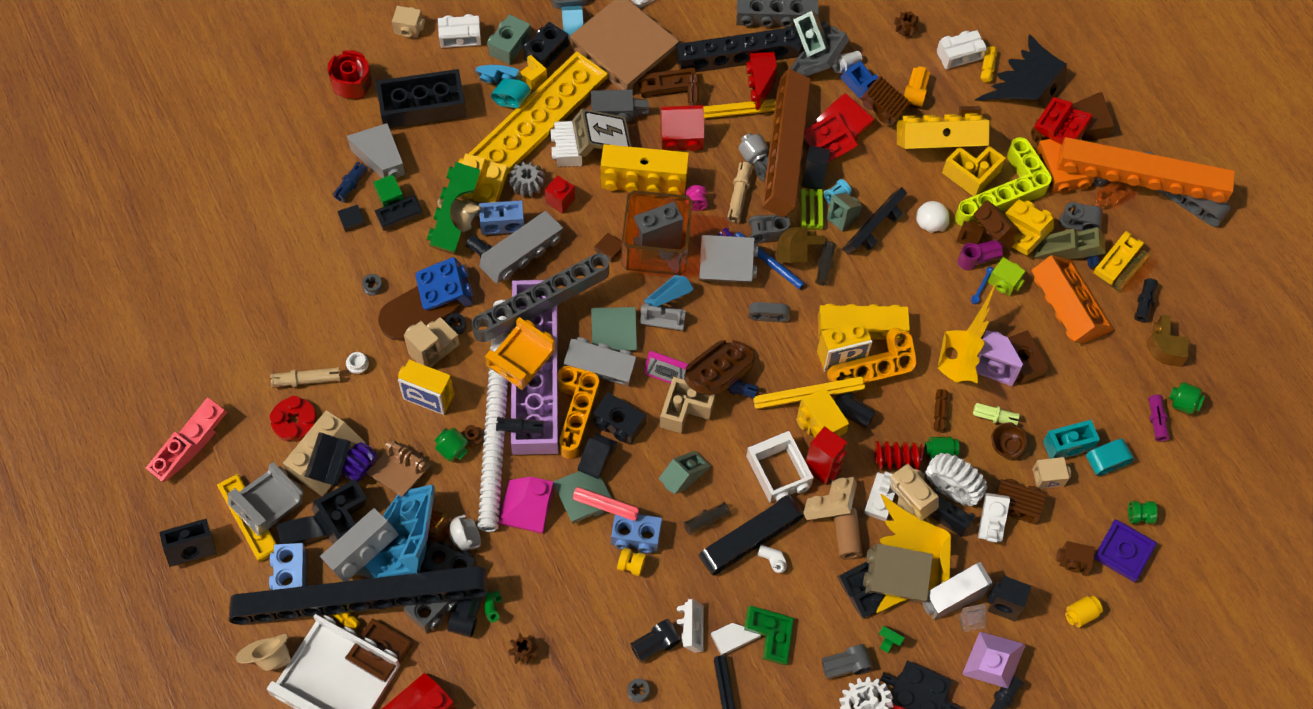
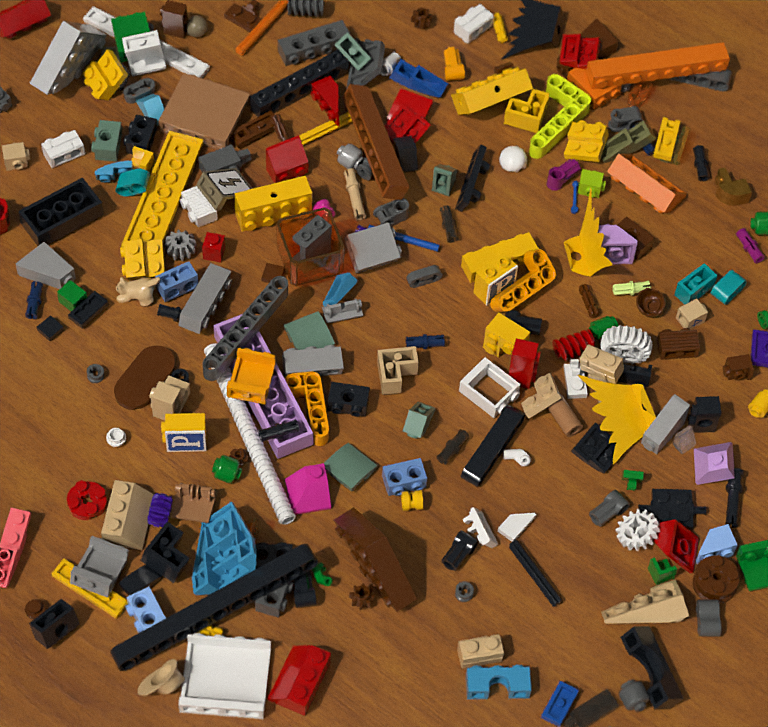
camera: 25 degrees left, 5 degrees down
(180, 516) = (34, 608): none -> reddish brown plate
(304, 377) = (79, 464): tan pin -> none
(327, 459) = (137, 515): black panel -> none
(359, 545) = (197, 569): light grey brick -> none
(385, 639) = (244, 654): reddish brown tile -> none
(444, 283) = (156, 350): blue bracket -> none
(462, 181) = (137, 311): green arch -> none
(464, 533) = (272, 531): white hair -> none
(552, 614) = (376, 558): none -> reddish brown brick
(596, 455) = (345, 433): black slope -> none
(606, 503) = (373, 463): coral axle -> none
(664, 367) = (365, 348): slope -> none
(719, 367) = (408, 330): reddish brown tile -> none
(776, 629) = (546, 506): green tile -> none
(794, 242) = (419, 217): pearl gold brick -> none
(797, 394) = (480, 327): yellow axle -> none
(811, 194) = (411, 175): lime tile -> none
(840, 187) = (429, 167): medium azure bush -> none
(885, 101) = (435, 83): reddish brown brick -> none
(898, 572) = (617, 427): dark tan panel -> none
(970, 233) = (548, 160): reddish brown tile -> none
(993, 517) = (666, 362): white plate -> none
(997, 224) = (567, 146): reddish brown brick -> none

